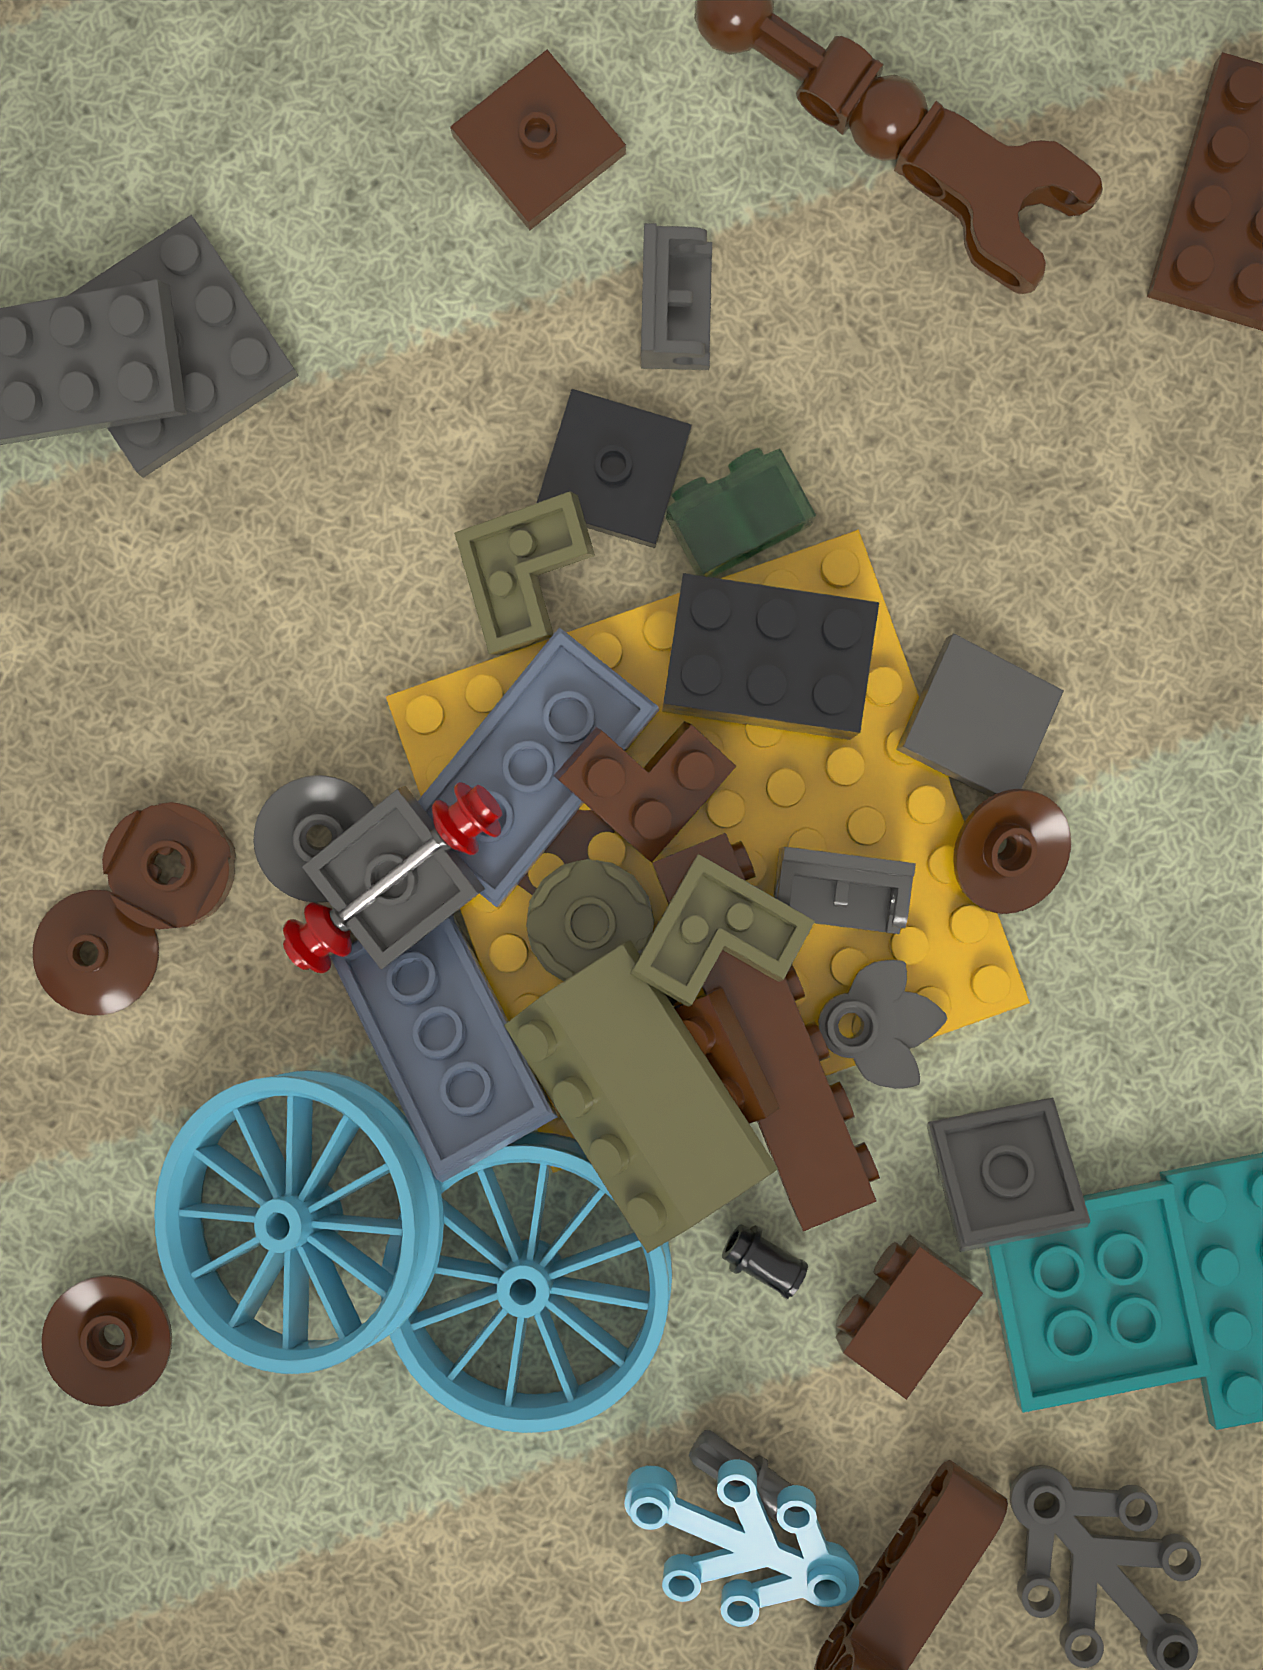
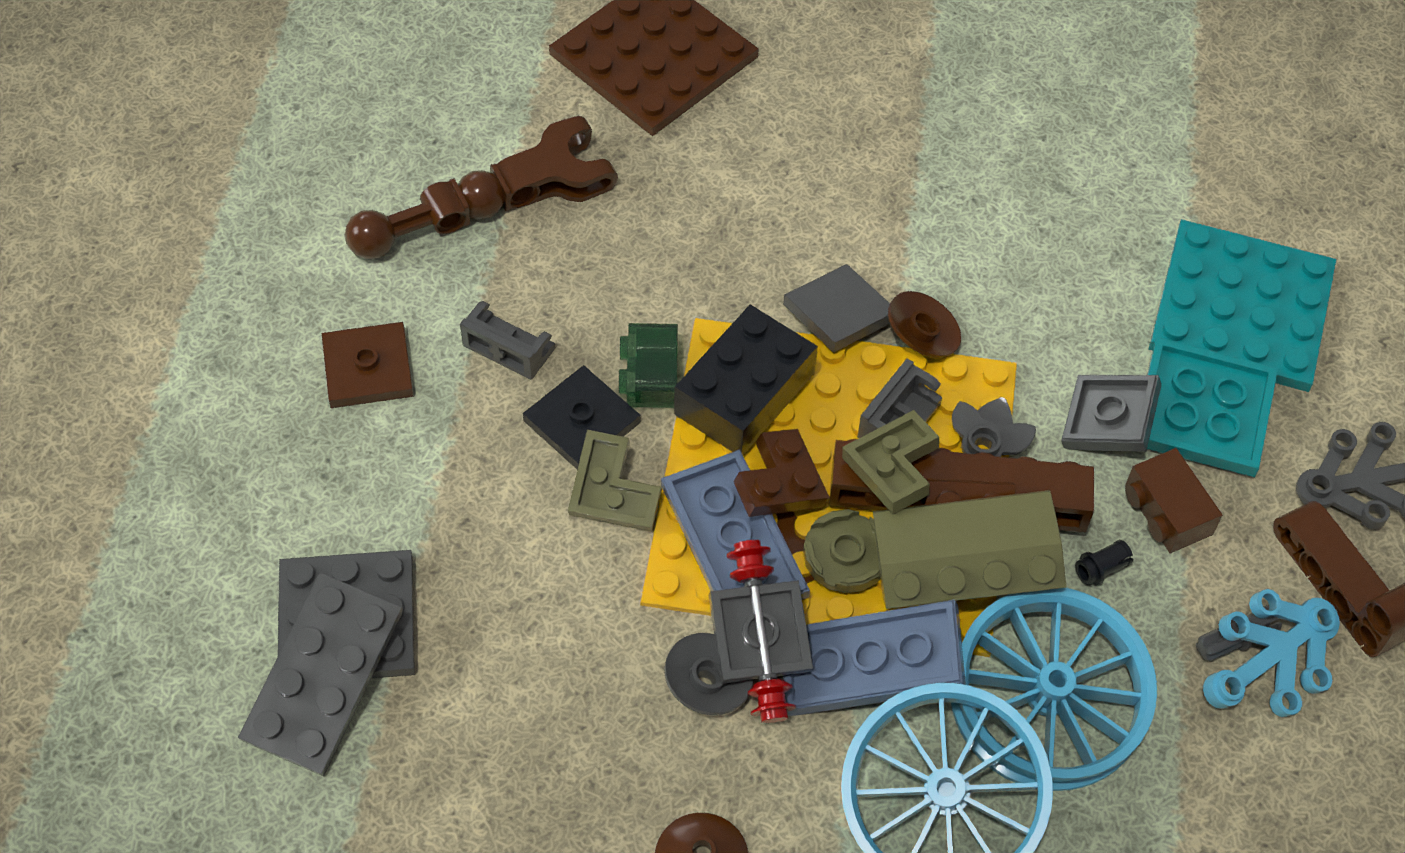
camera: 70 degrees left, 30 degrees down
(135, 878) = (667, 800): reddish brown plate -> none

